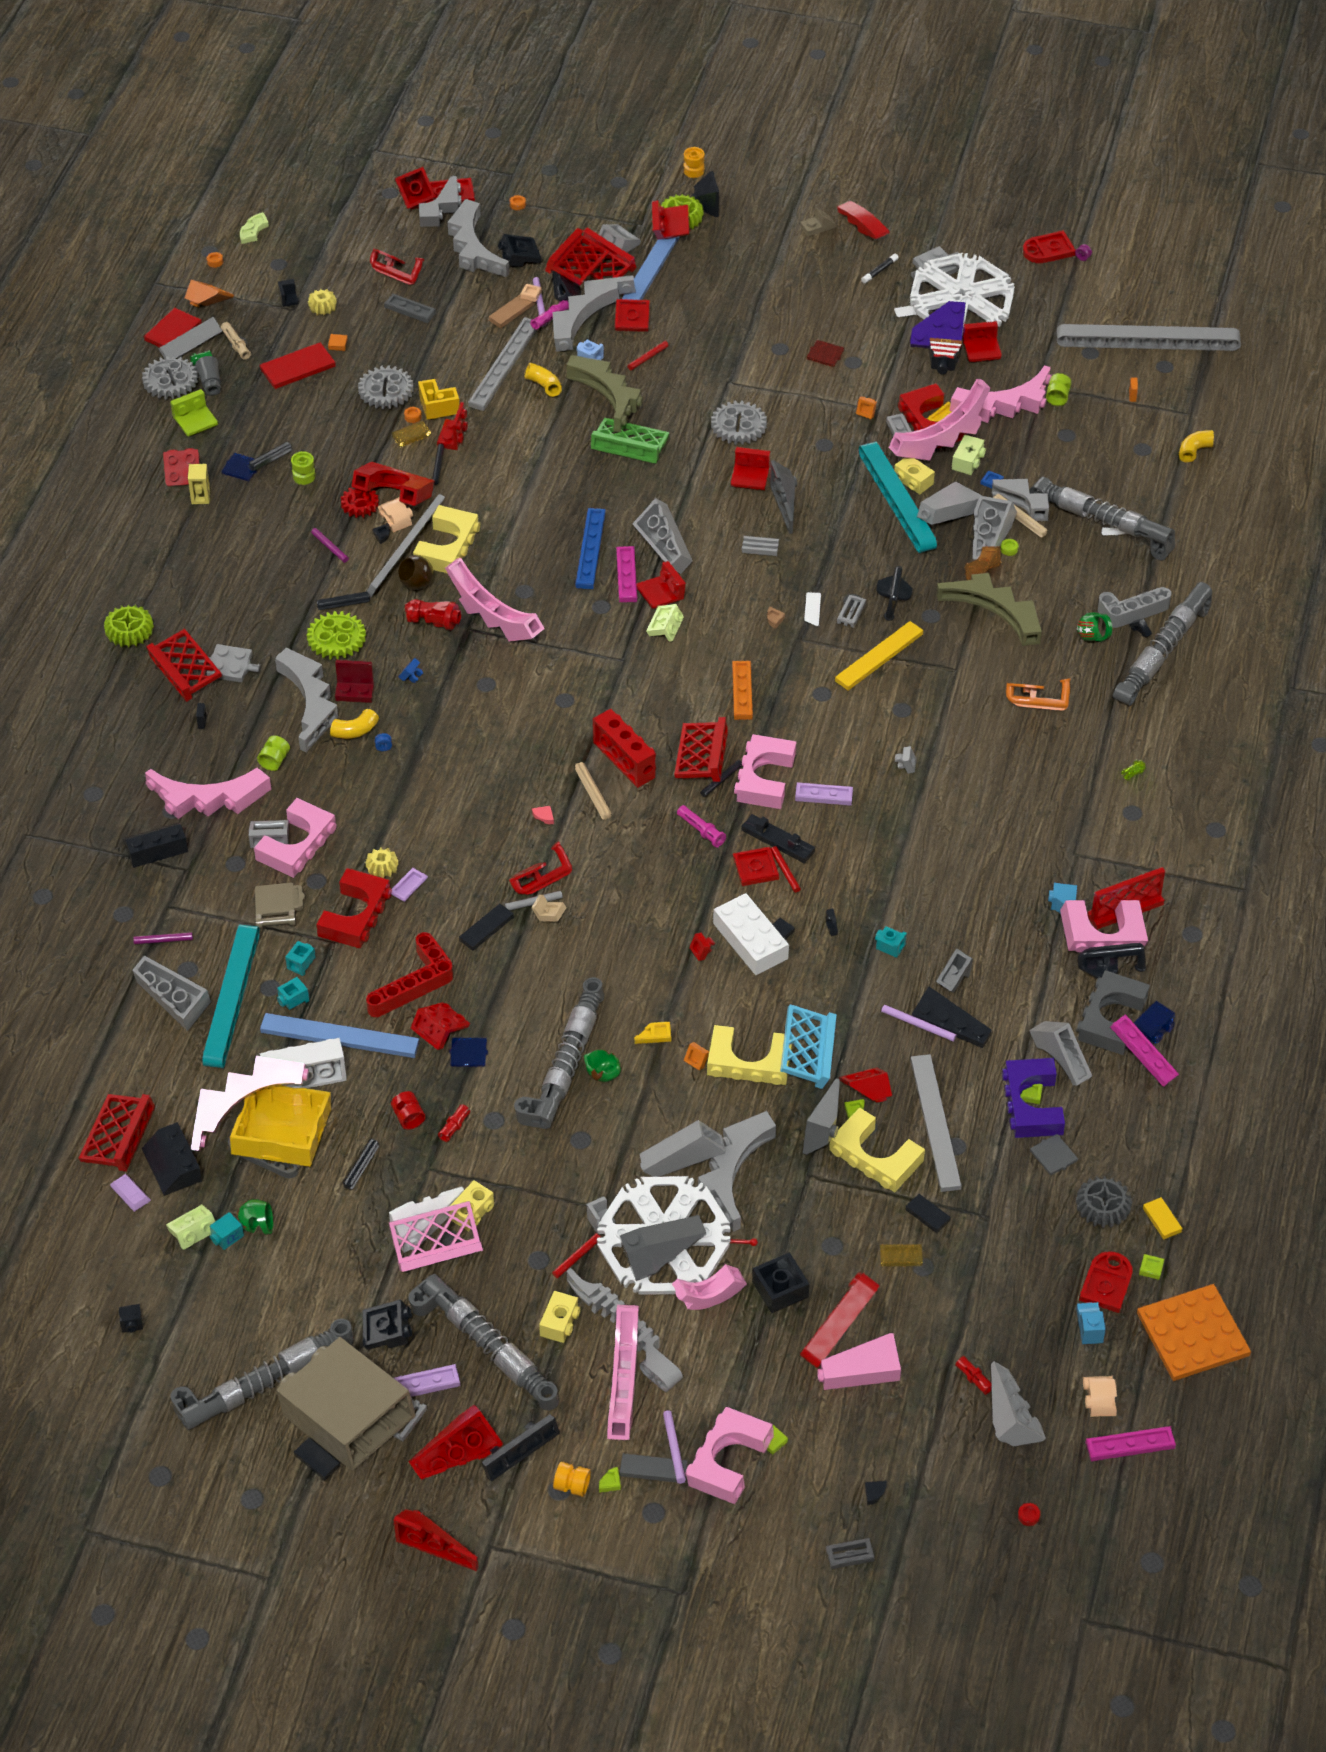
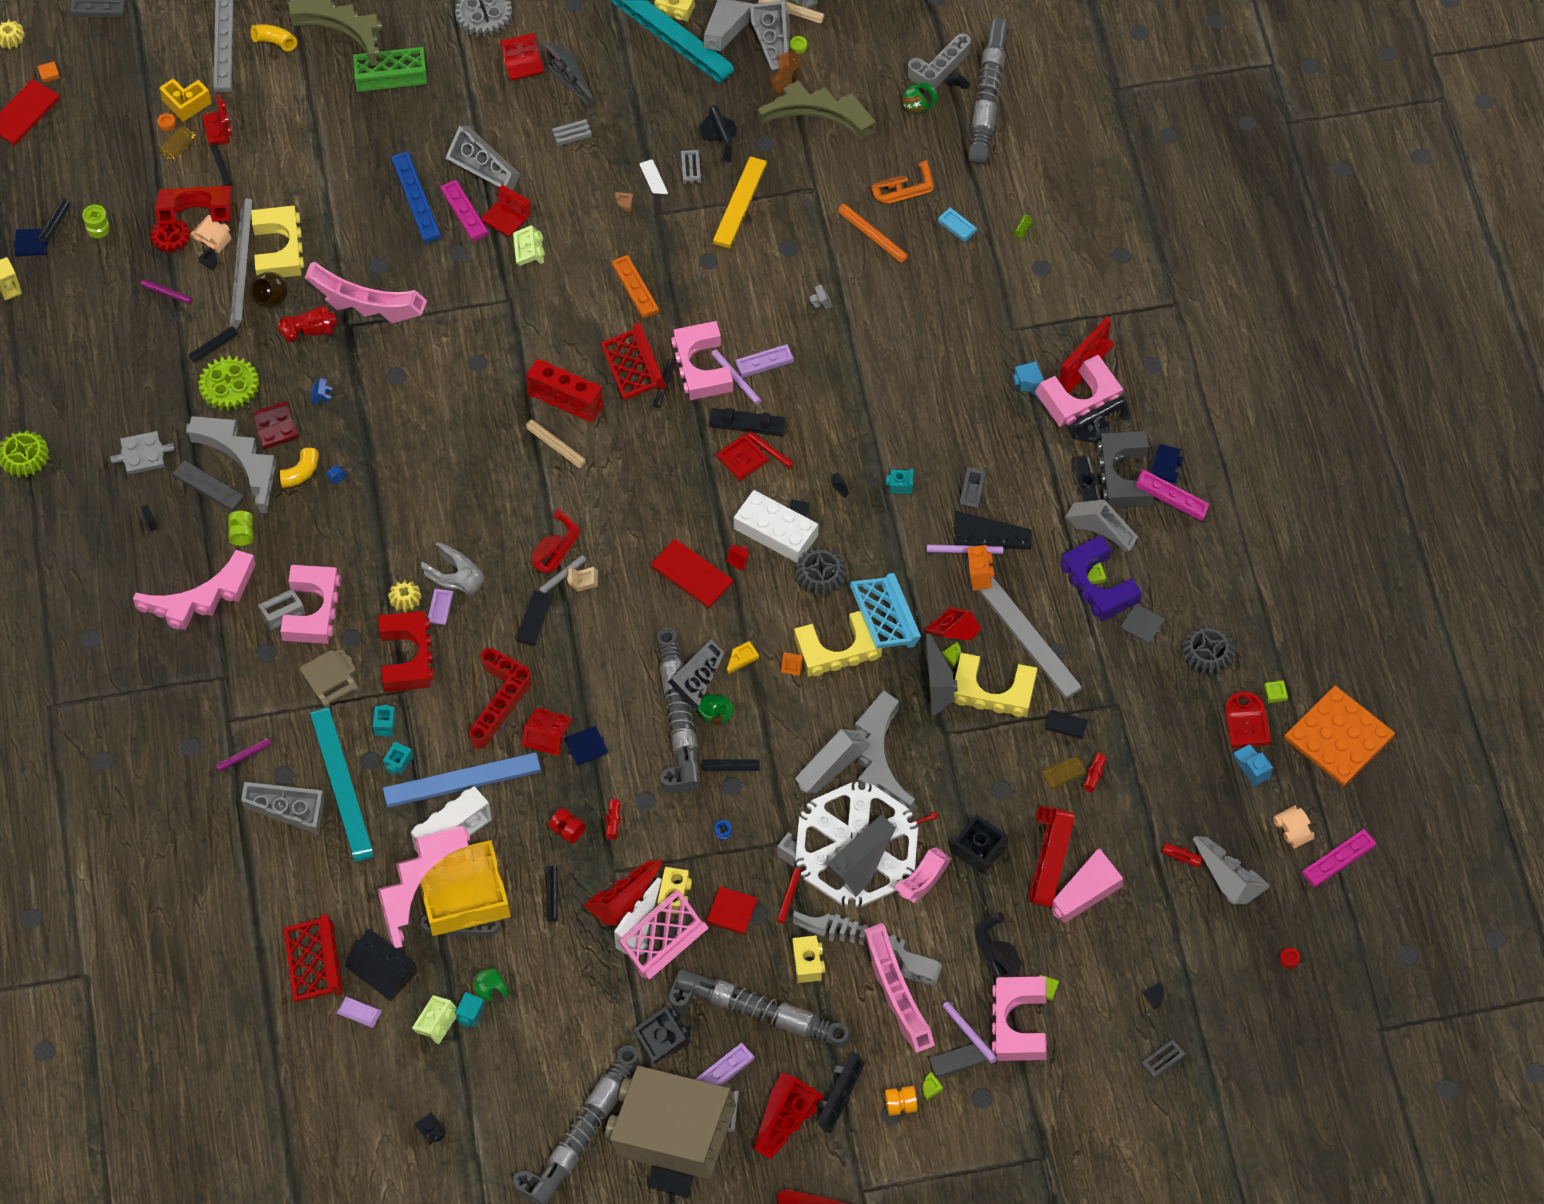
camera: 25 degrees left, 10 degrees up
(156, 844) = (181, 664): black slope -> none
(173, 674) = (96, 486): red fence -> none
(269, 710) = (208, 486): none -> flat silver tile
(398, 388) = (137, 97): light grey gear -> none
(408, 1191) = (618, 901): none -> red wedge
(444, 865) = (467, 578): none -> light grey hair
(516, 1246) = (732, 910): none -> red tile
(543, 814) = (524, 485): coral tile -> none
(549, 1167) = (723, 836): none -> blue bush
(589, 1120) = (731, 765): none -> black axle
(601, 1027) = (697, 673): none -> wing
(651, 945) = (692, 573): none -> red tile
(706, 830) = (680, 440): dark pink pin -> none
(744, 1390) = (998, 952): none -> black piece
(770, 988) = (810, 576): none -> dark grey gear
(790, 798) = (736, 377): none -> lavender bar
(921, 1041) = (980, 567): none -> orange brick
(930, 1266) = (1095, 772): none -> red pin
(987, 724) = (873, 233): none -> orange axle
(1069, 1003) = (1085, 475): none -> black piece
(1071, 746) = (957, 224): none -> medium azure tile
(1162, 1218) = (1262, 643): yellow tile -> none

